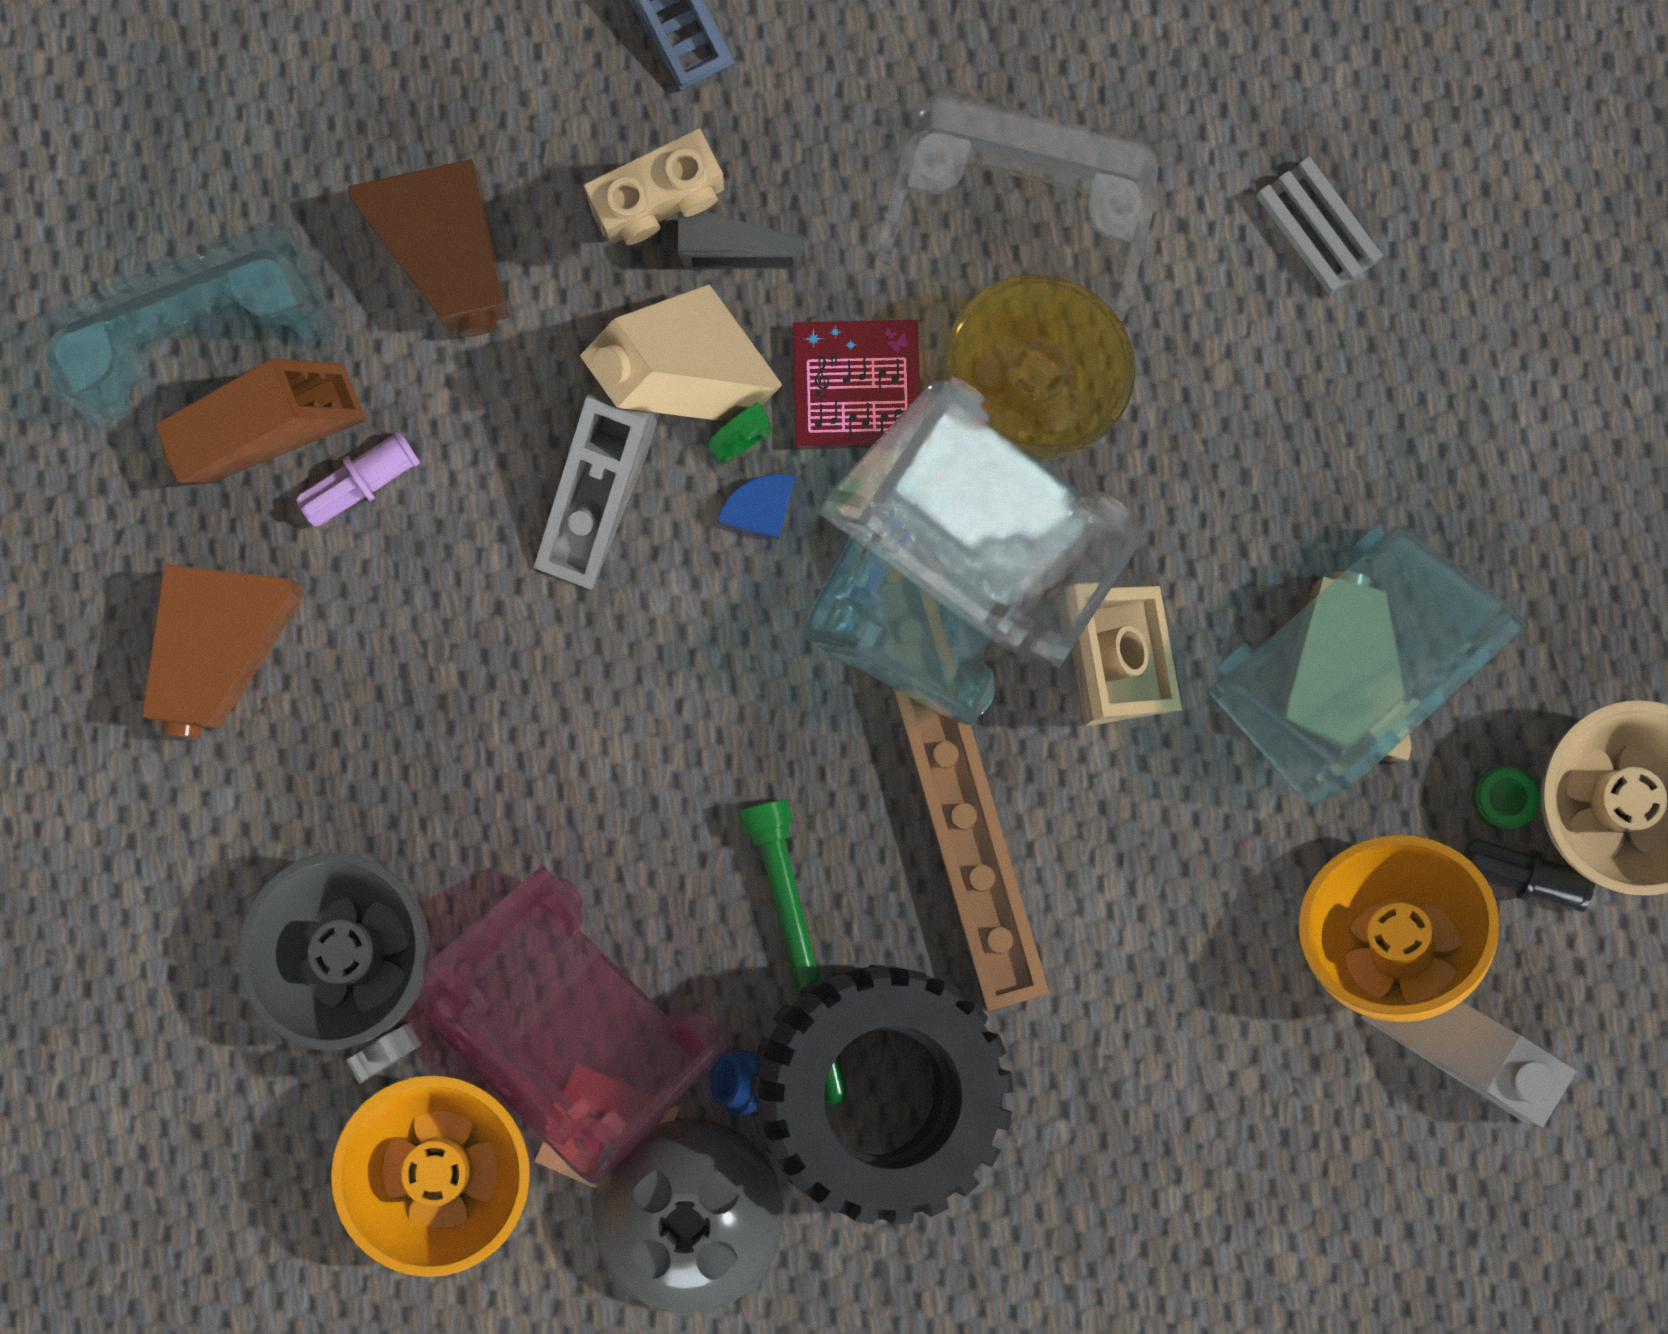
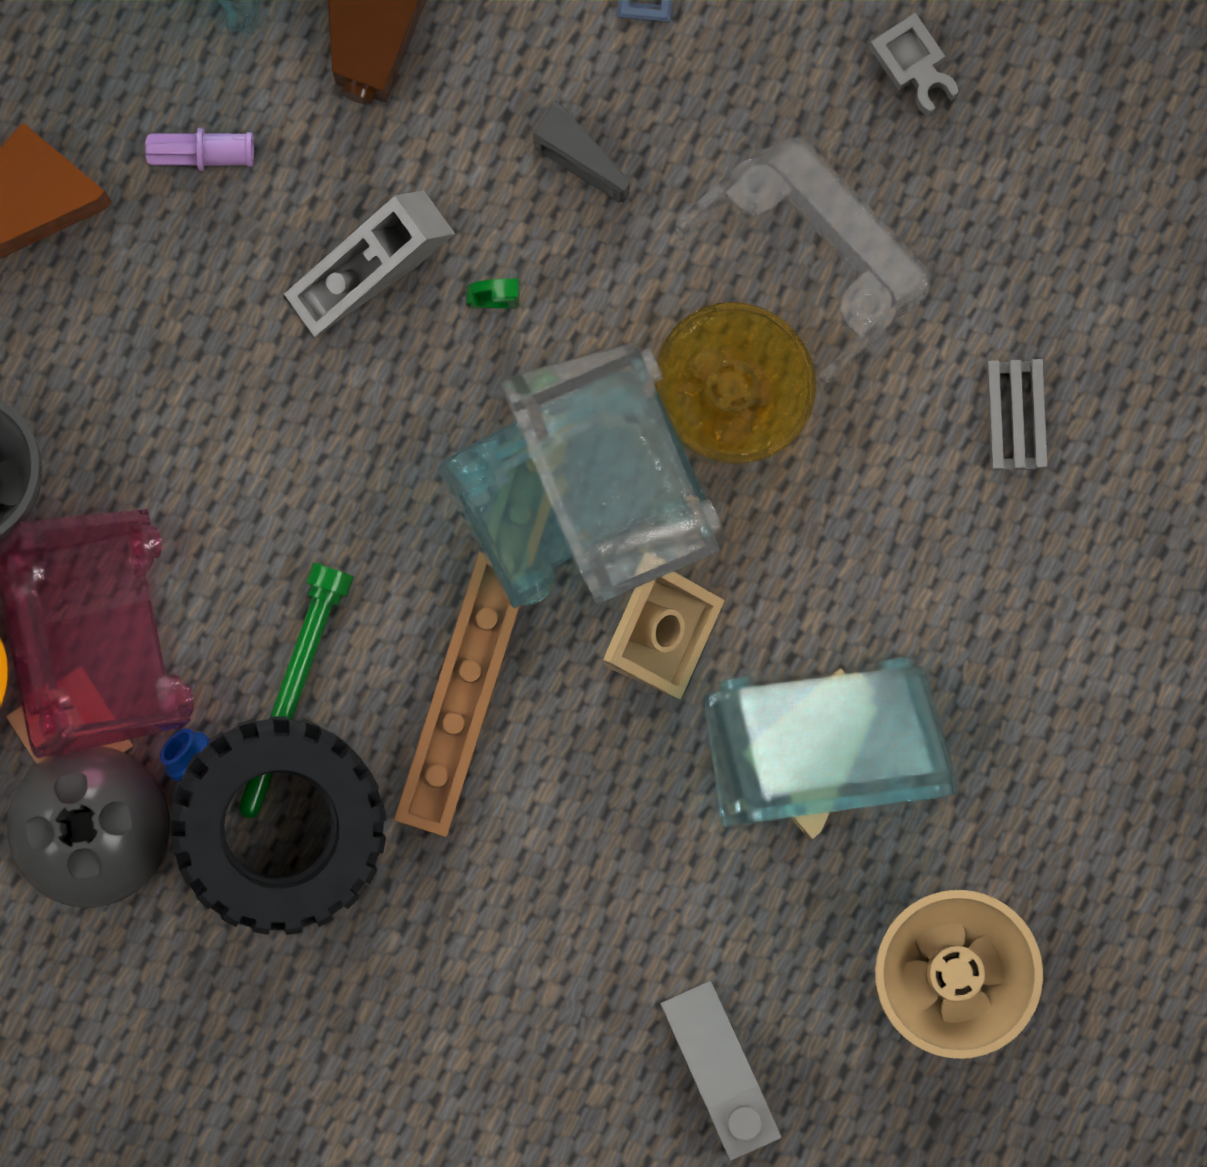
camera: 35 degrees right, 0 degrees up
(258, 418) = (158, 61): dark orange slope -> none
(654, 187) = (543, 77): tan plate -> none
(681, 360) = (482, 213): tan slope -> none
(759, 505) = (474, 354): blue tile -> none
(852, 380) = (600, 305): dark red tile -> none
(1399, 897) = (722, 928): light orange piece -> none
(1505, 797) = (870, 914): green tile -> none
(1530, 874) = (847, 979): black axle -> none

